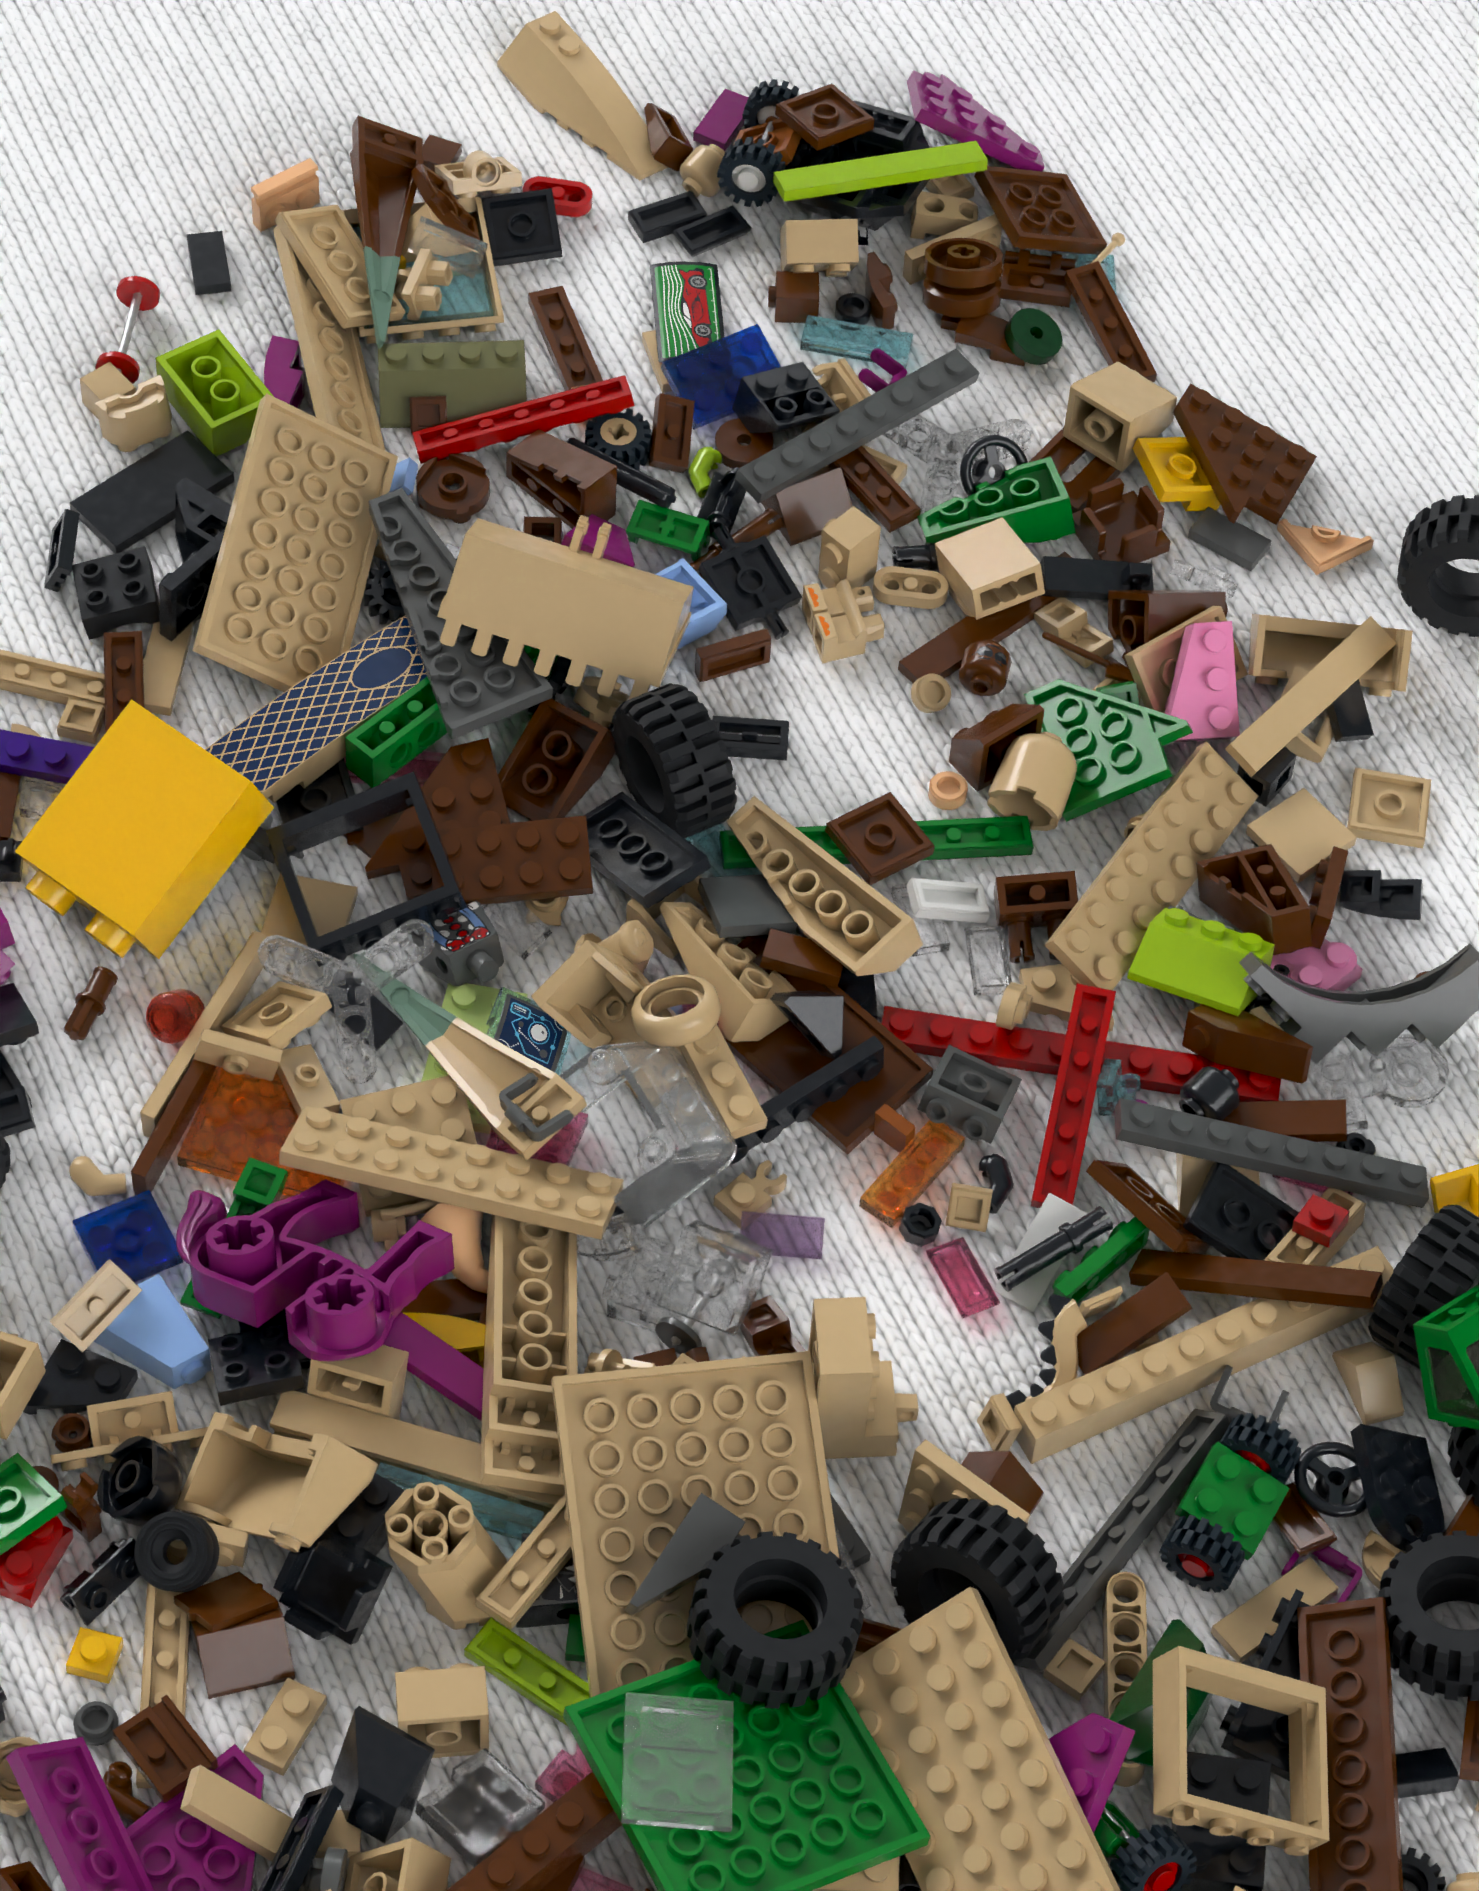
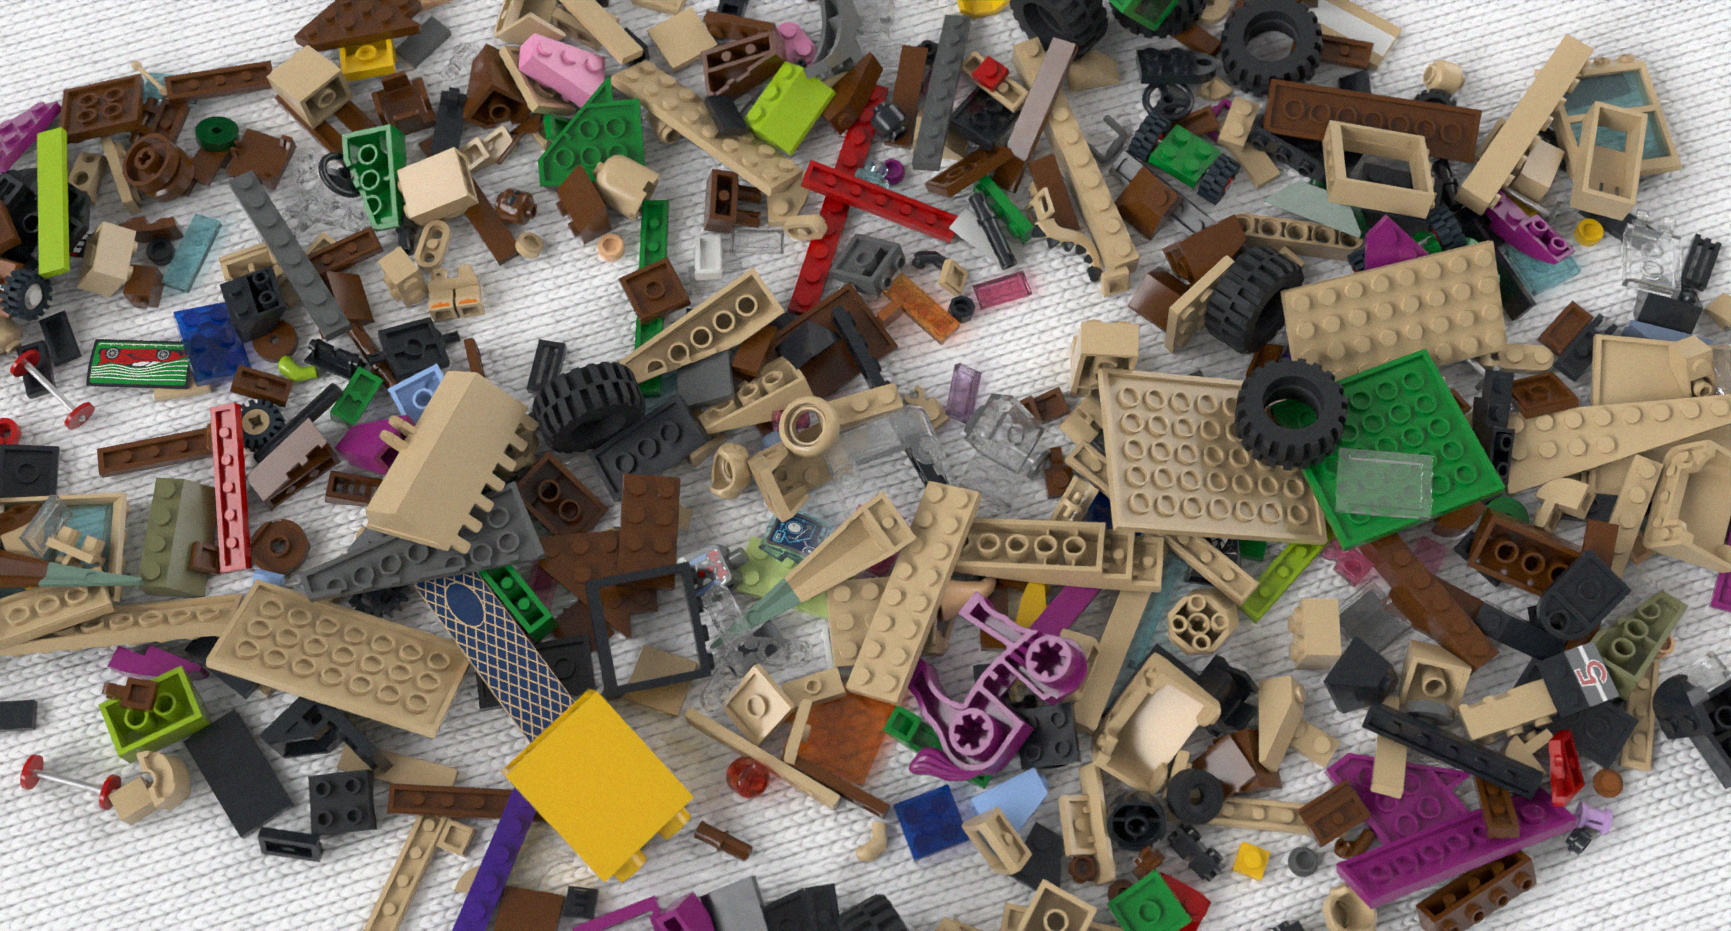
camera: 80 degrees left, 15 degrees up
(230, 355) = (135, 695): none -> reddish brown plate
(301, 1665) = (1279, 717): none -> tan slope
(521, 1119) = (890, 536): dark grey piece -> none
(662, 195) = (26, 363): none -> red axle
(694, 1543) = (1236, 463): dark grey slope -> none
(888, 364) = (249, 234): magenta piece -> none
(1007, 388) = (263, 155): none -> reddish brown piece
(1069, 1528) = (1202, 250): none -> reddish brown slope
(1144, 1461) = (1147, 203): none -> reddish brown slope
(1170, 884) = (726, 115): none -> black tile
(1317, 1581) = (1238, 124): none -> tan plate

